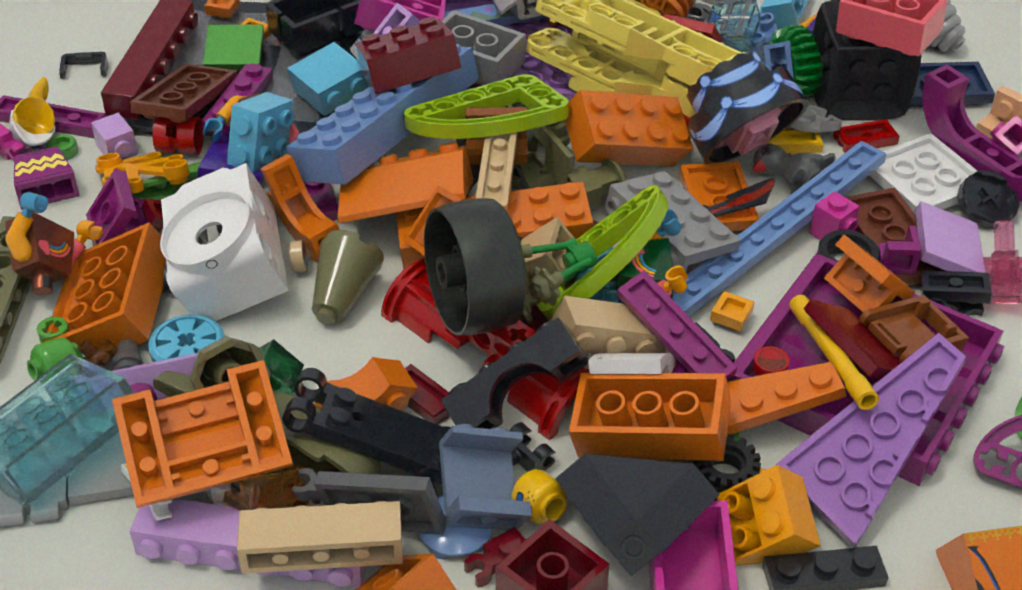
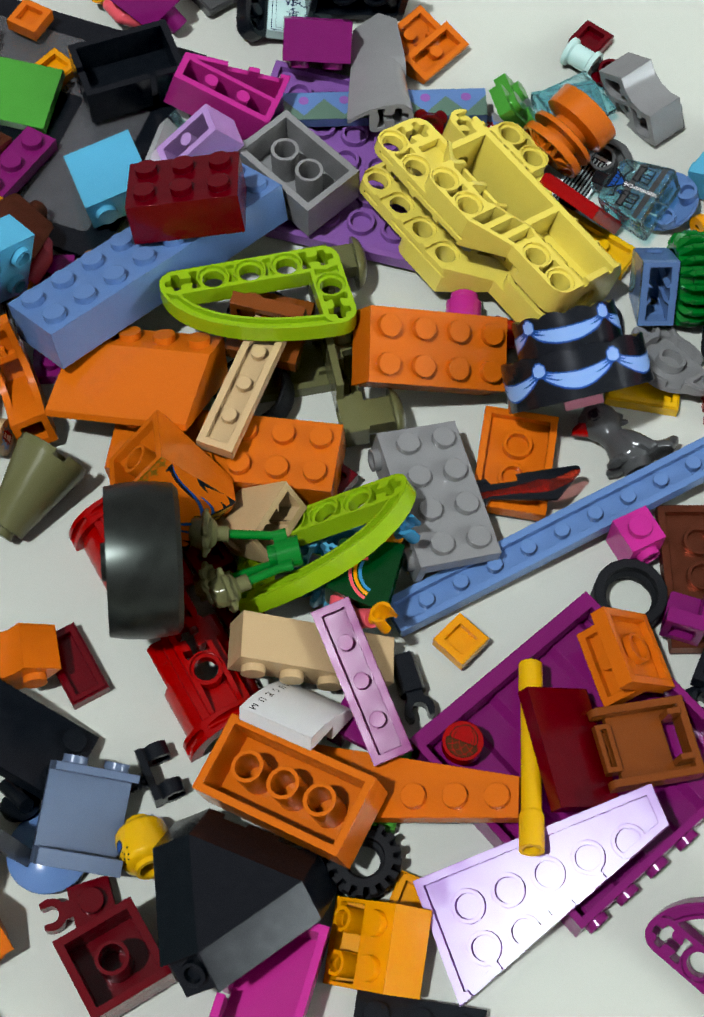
camera: 15 degrees right, 20 degrees up
(547, 352) = (120, 709): black arch -> none

